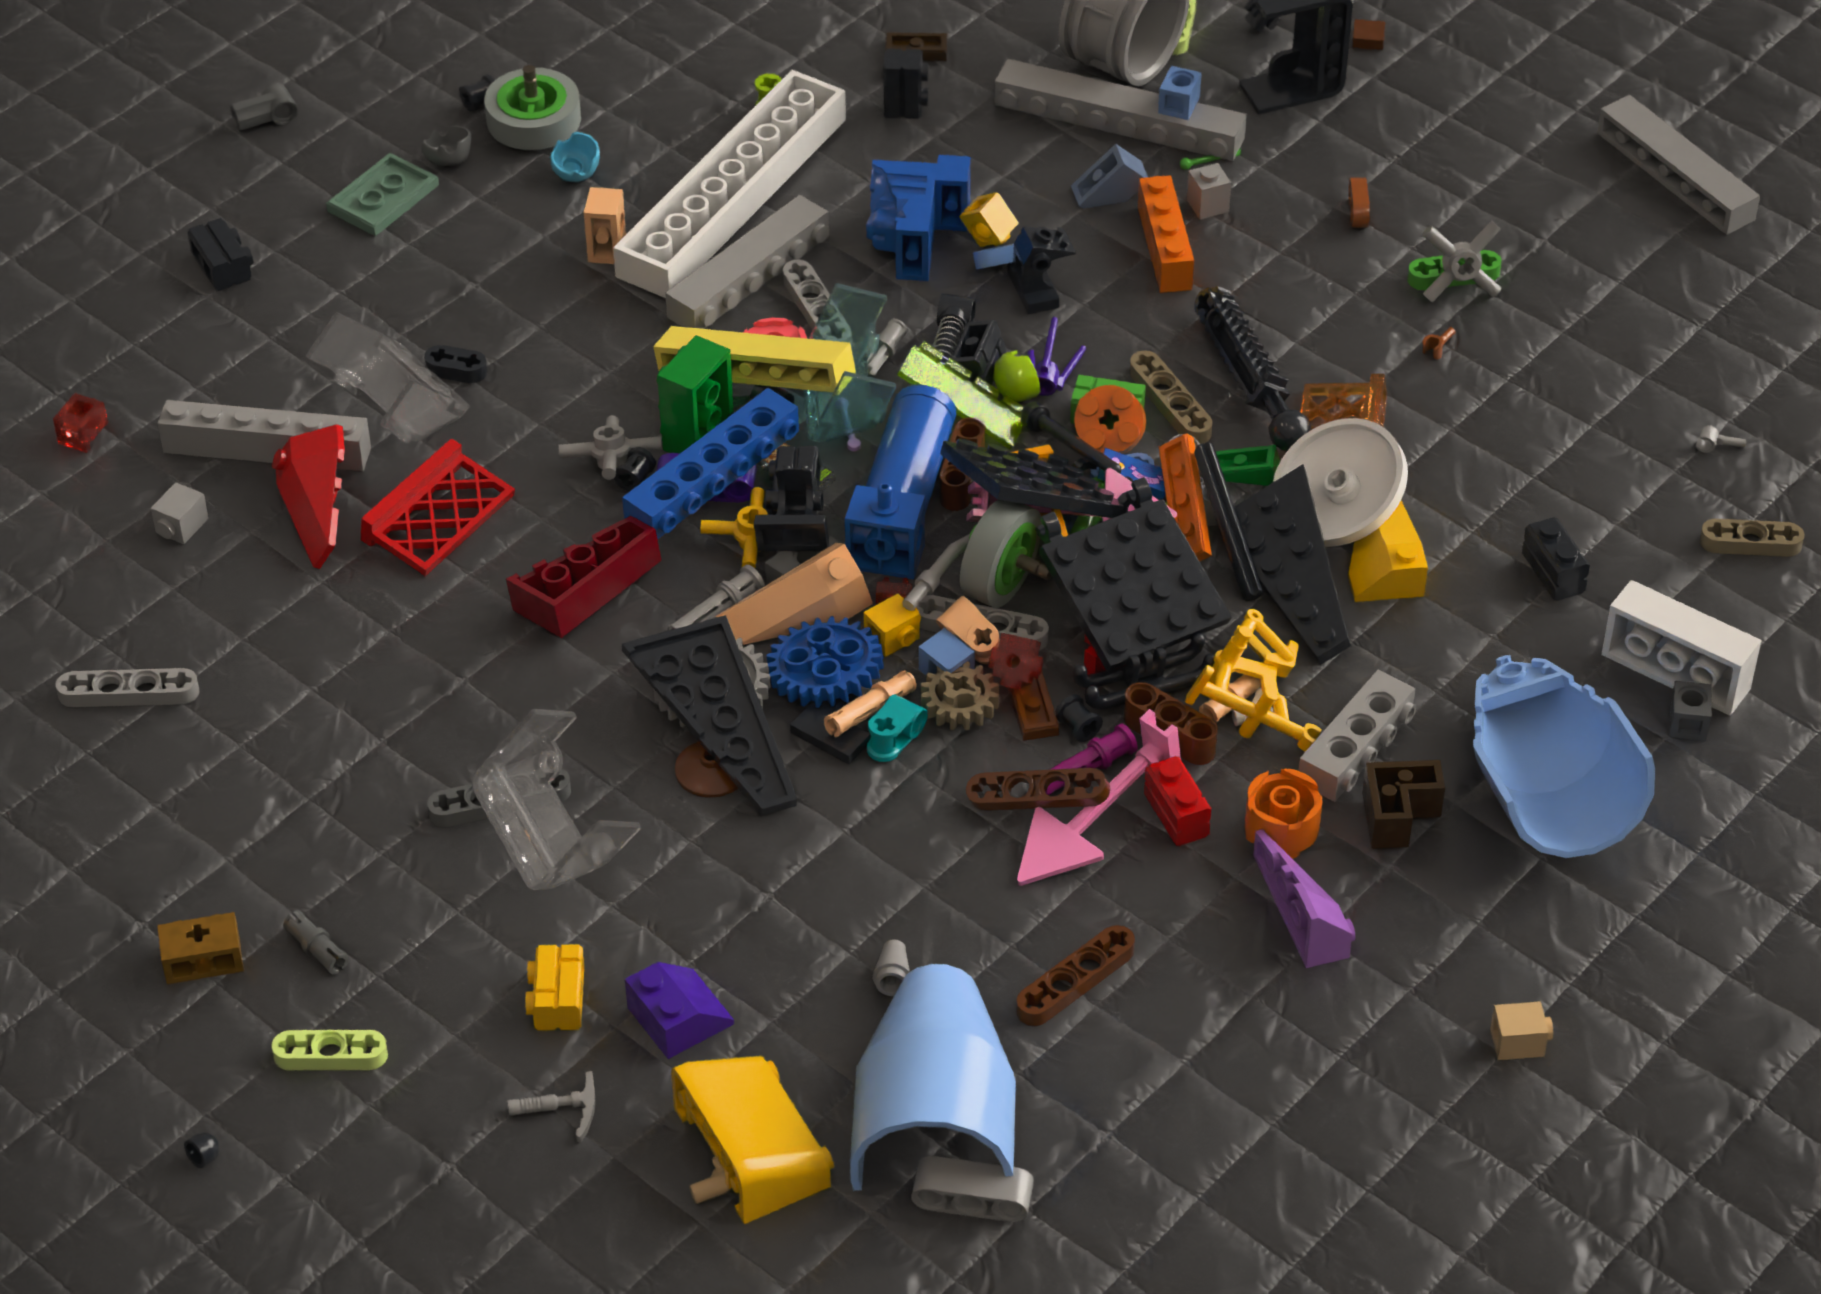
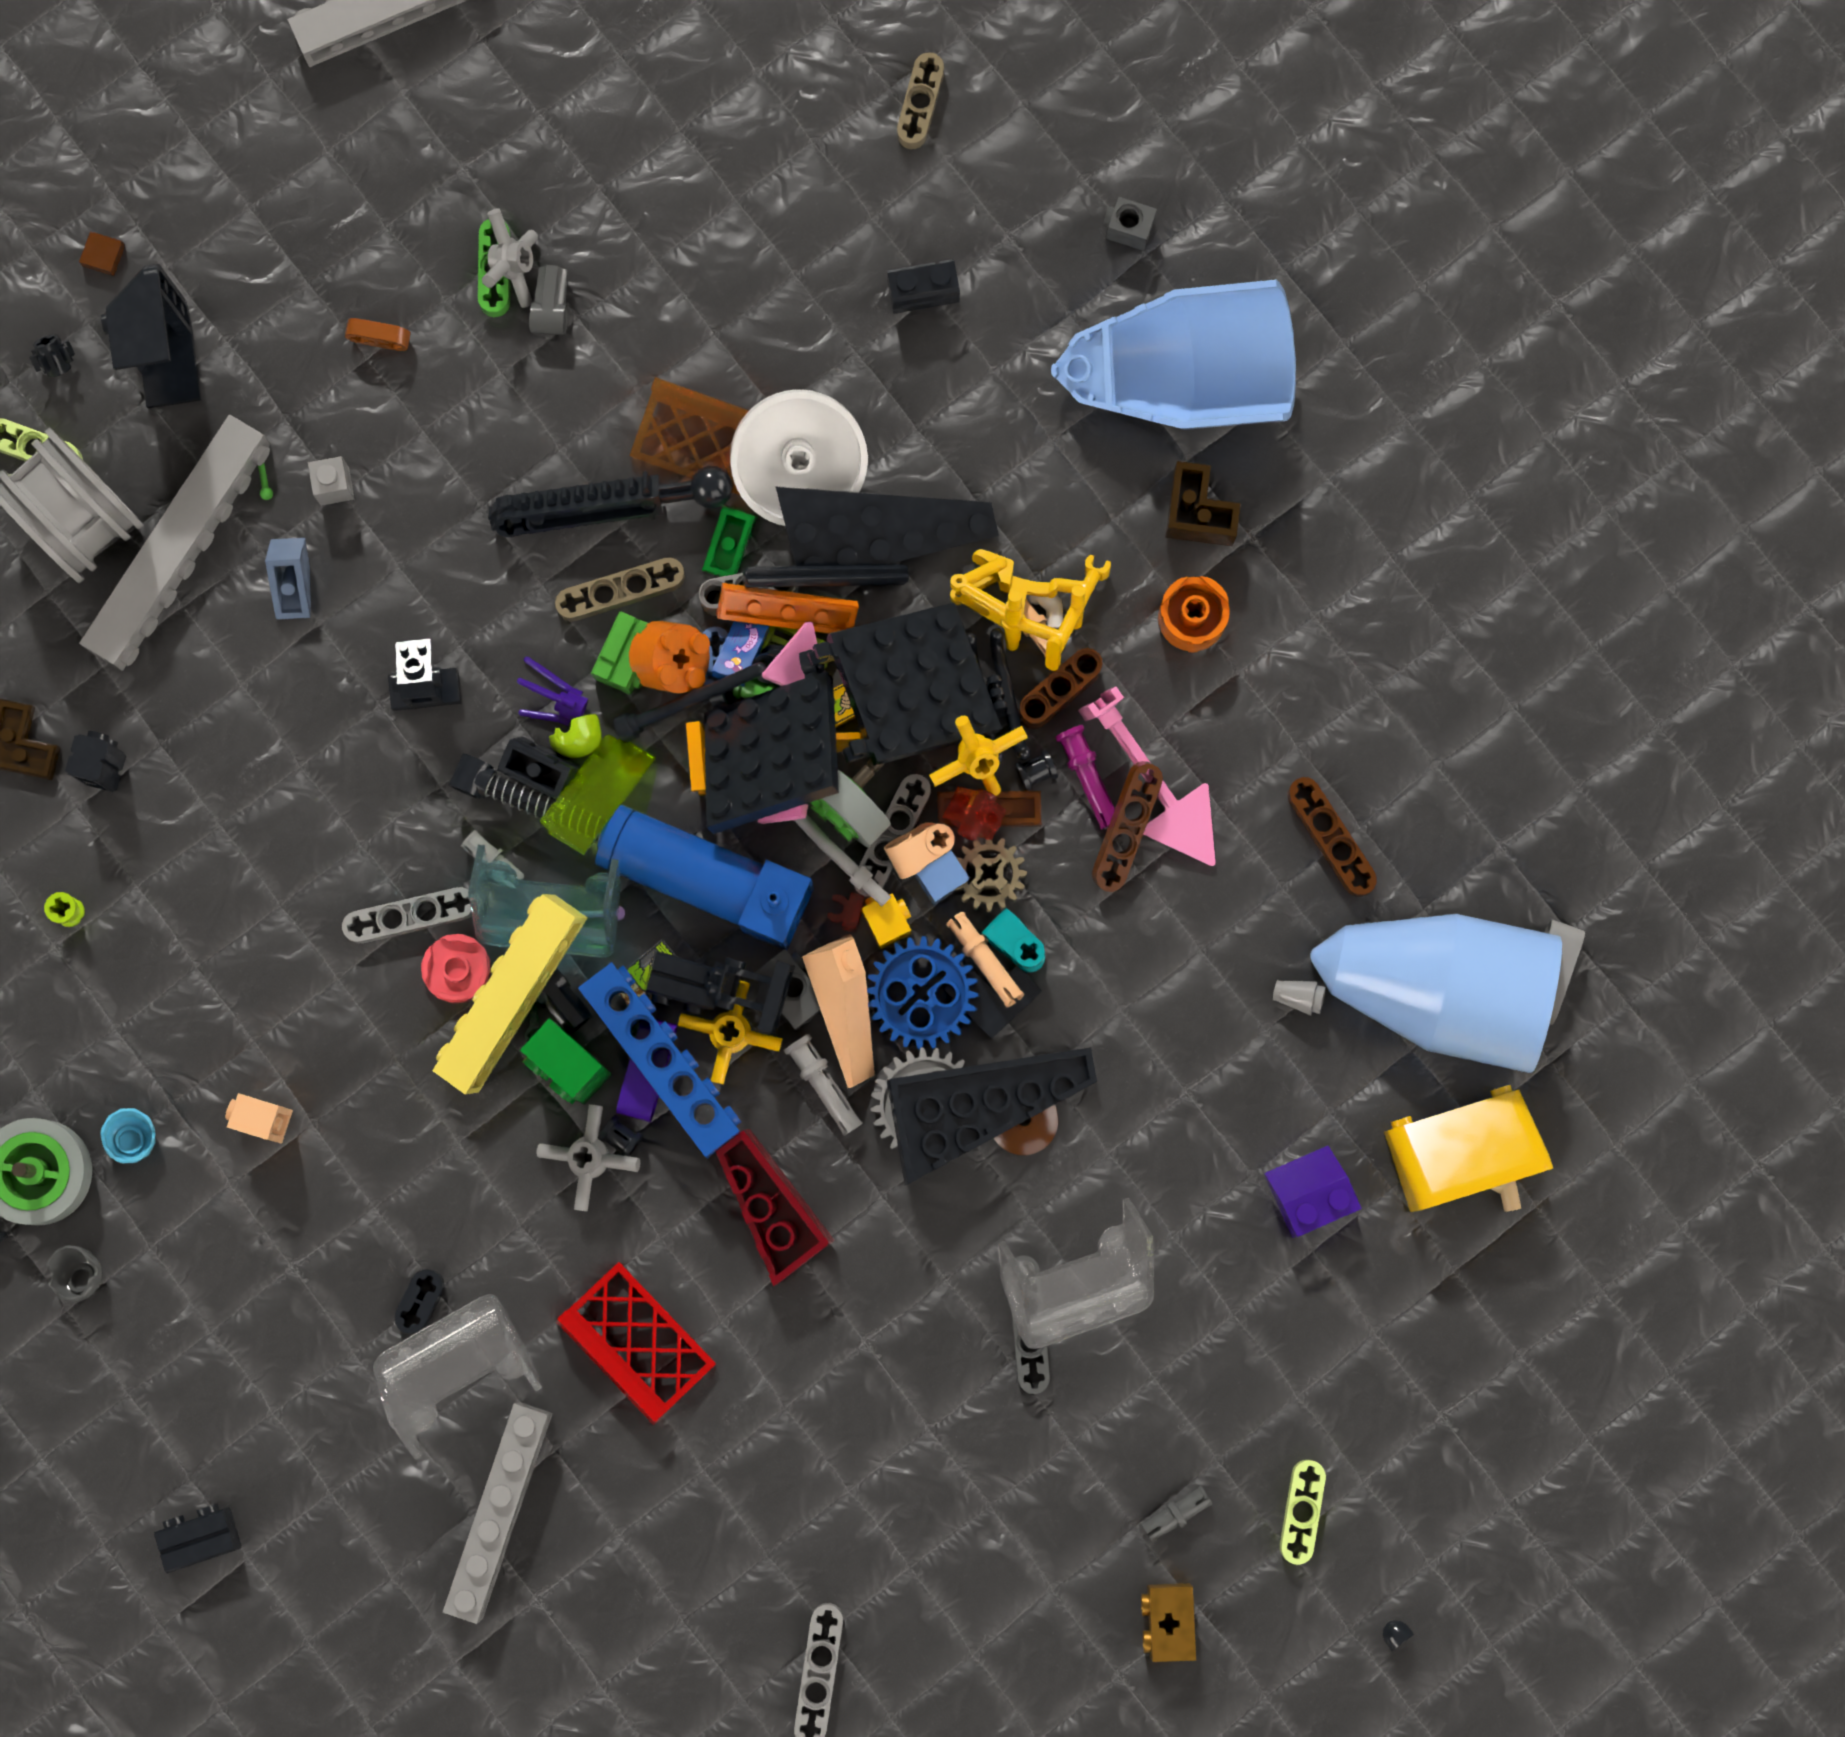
camera: 80 degrees left, 35 degrees up
(80, 422) = (434, 1718): clear red brick -> none
(179, 513) = (593, 1609): light grey brick -> none
(310, 487) = (585, 1470): red wedge -> none
(382, 194) = (126, 1352): sand green tile -> none
(552, 1102) = (1392, 1317): light grey piece -> none
(557, 987) = (1274, 1298): yellow brick -> none
(730, 183) = (211, 973): white brick -> none
(747, 264) = (338, 976): light grey brick -> none
(911, 204) = (307, 797): blue brick -> none
(953, 481) = (667, 801): reddish brown beam -> none
(989, 220) = (332, 715): yellow brick -> none
(993, 256) = (380, 710): medium blue beam -> none
(1074, 643) = (978, 755): none -> yellow bar
(1165, 234) = (387, 539): orange brick -> none
(1177, 801) = (1158, 704): red brick -> none
(1179, 92) = (201, 487): medium blue brick -> none
(1307, 910) = (1314, 618): medium lavender wedge -> none
(1358, 734) = (1136, 567): light grey brick -> none
(1389, 561) = (895, 439): yellow wedge -> none
(1424, 307) = (549, 310): none -> dark grey piece
(1436, 342) = (594, 310): dark orange hand -> none
(1520, 1030) = (1464, 475): tan brick -> none
(1680, 644) = (1068, 207): white brick -> none
(1710, 437) = (784, 99): light grey hand -> none

